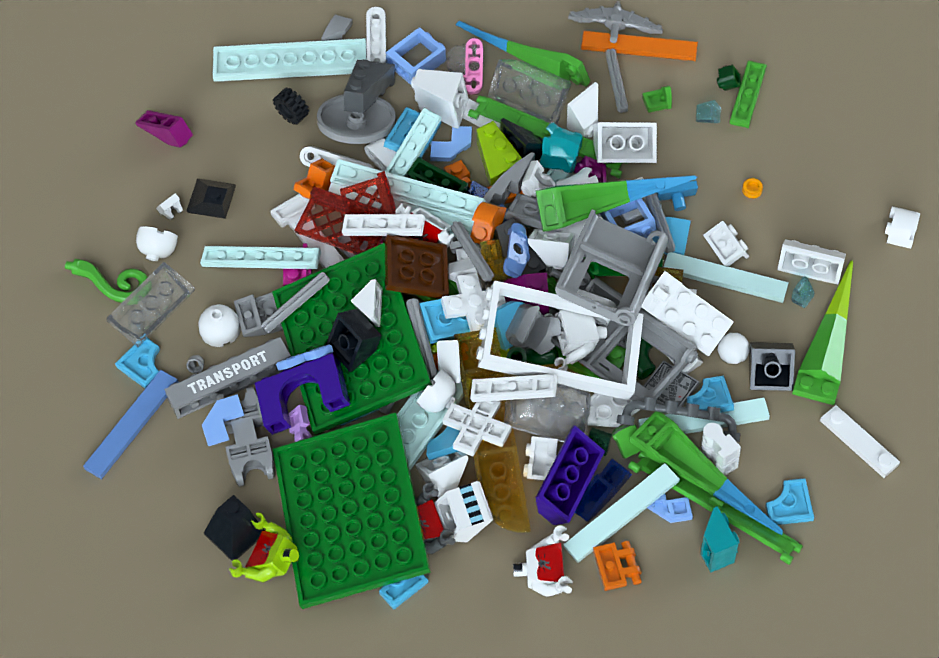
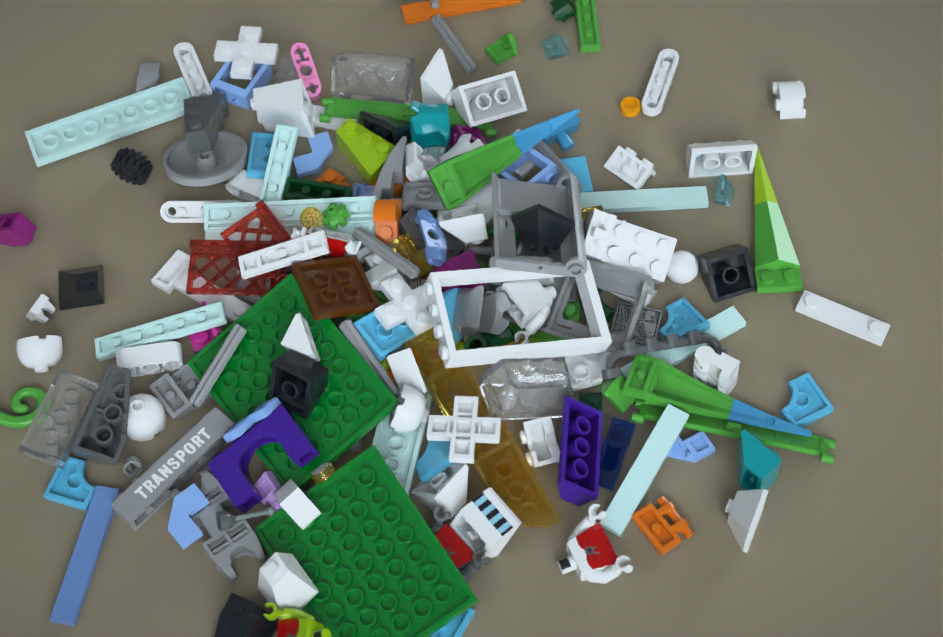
camera: 20 degrees left, 0 degrees up
(183, 323) = (106, 422): none -> dark grey wedge
(243, 278) = (151, 358): none -> white beam
(252, 434) = (226, 519): none -> hinge
(280, 501) = (285, 582): none -> white slope
(314, 440) = (296, 504): none -> white slope
(318, 176) = (189, 226): orange brick -> none
(346, 421) = (323, 472): none -> clear yellow tile
(422, 199) = (311, 217): none -> clear yellow tile
(427, 33) = (246, 52): none -> white plate
(442, 204) = (335, 215): none -> bright green plant
(514, 388) = (490, 377): white plate -> none
(553, 62) = (390, 42): bright green plate -> none
(611, 274) = (541, 229): none -> black slope
(692, 581) = (745, 514): none -> white slope
(789, 174) = (660, 82): none -> white plate

